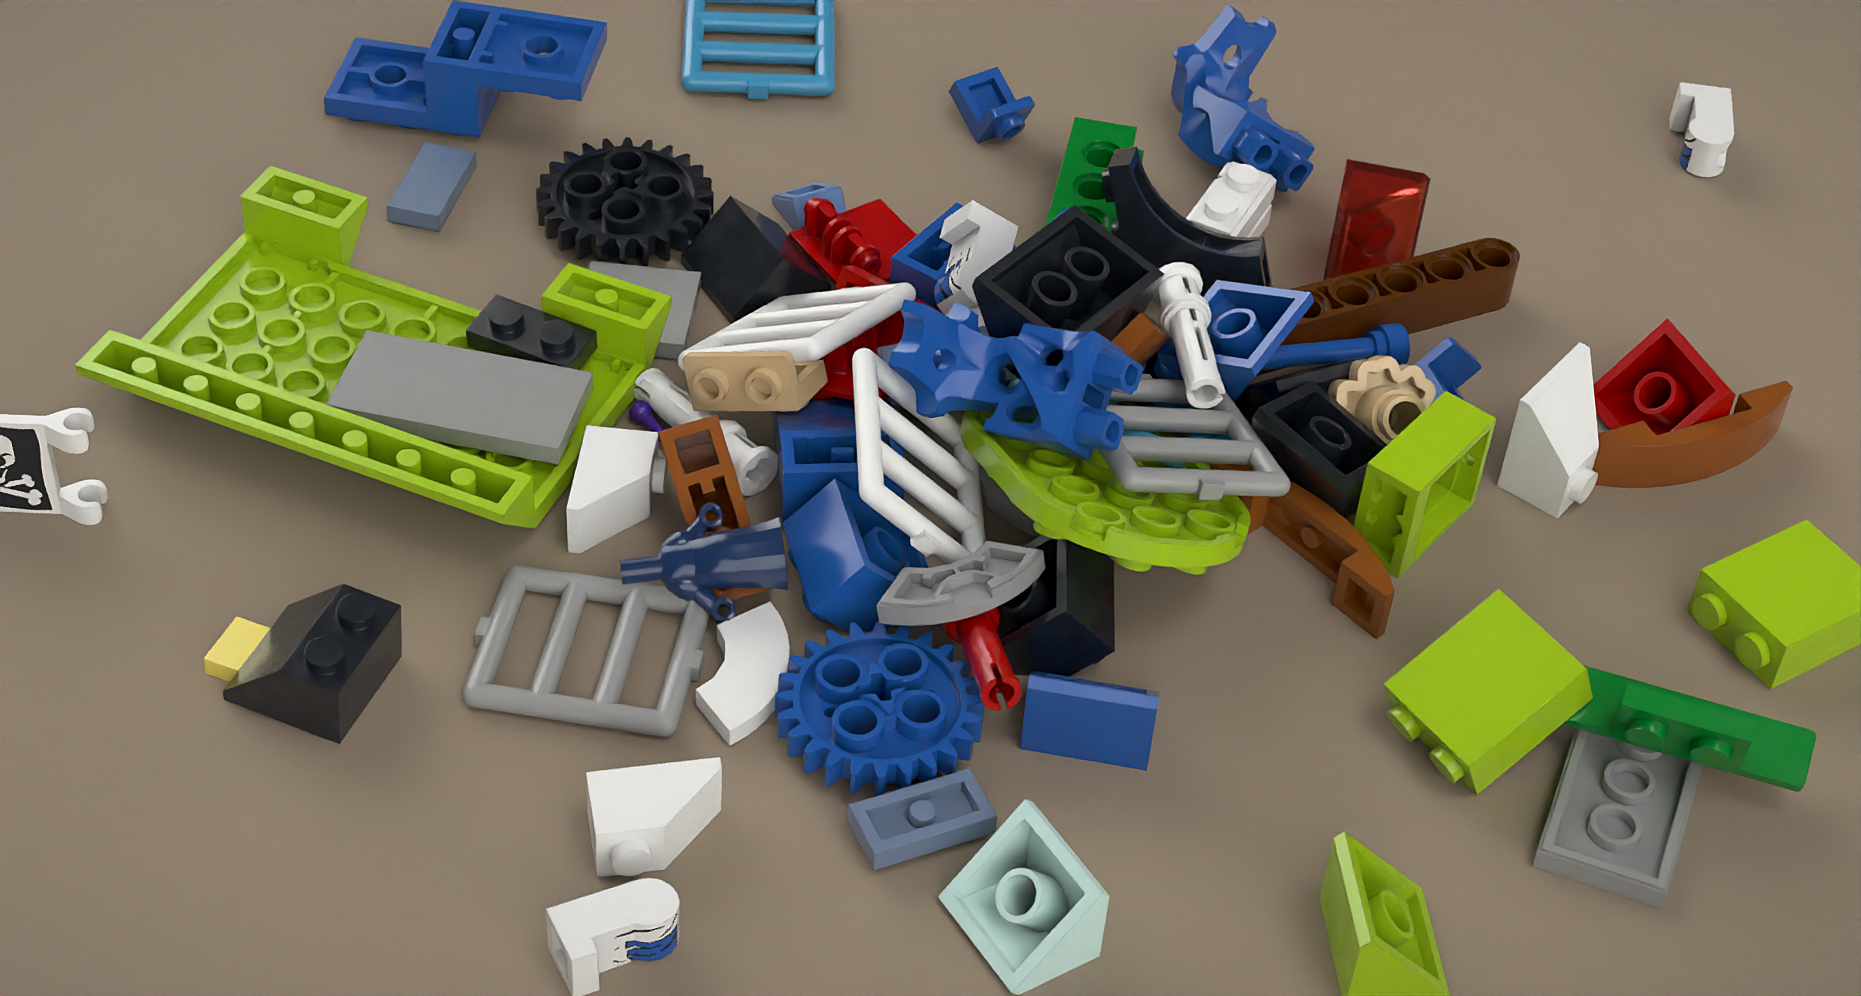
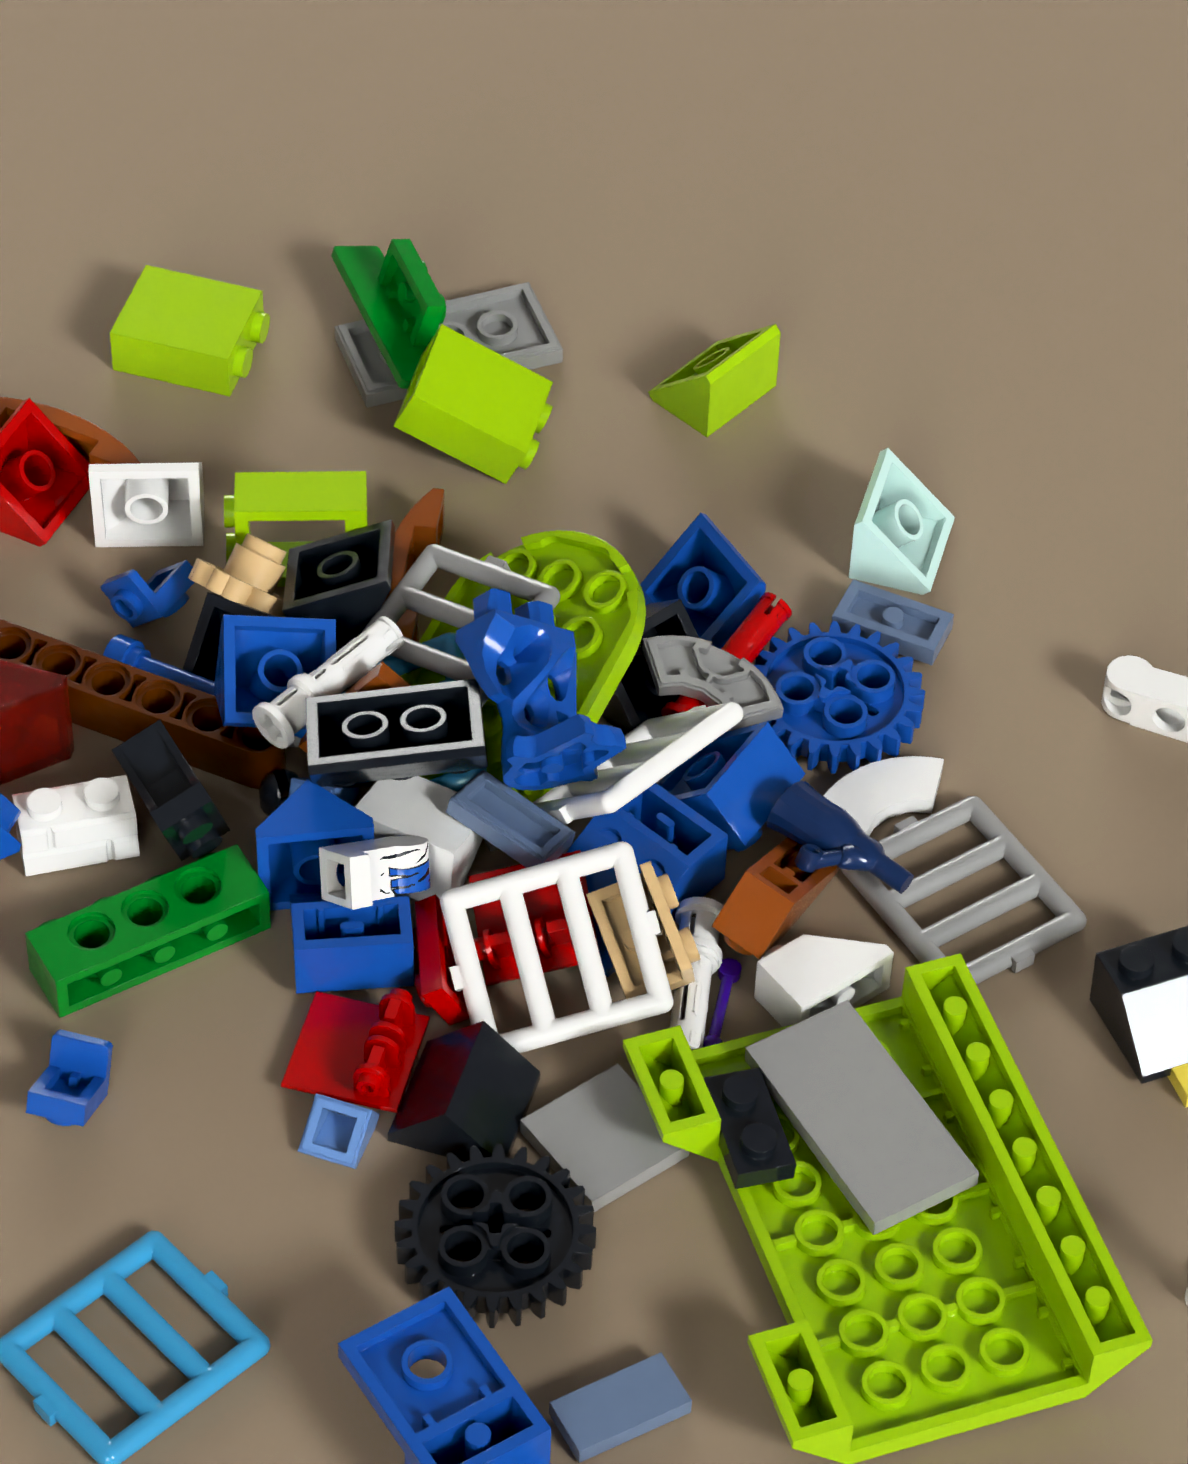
camera: 130 degrees left, 5 degrees up
(649, 813) = (1058, 741): white slope -> none

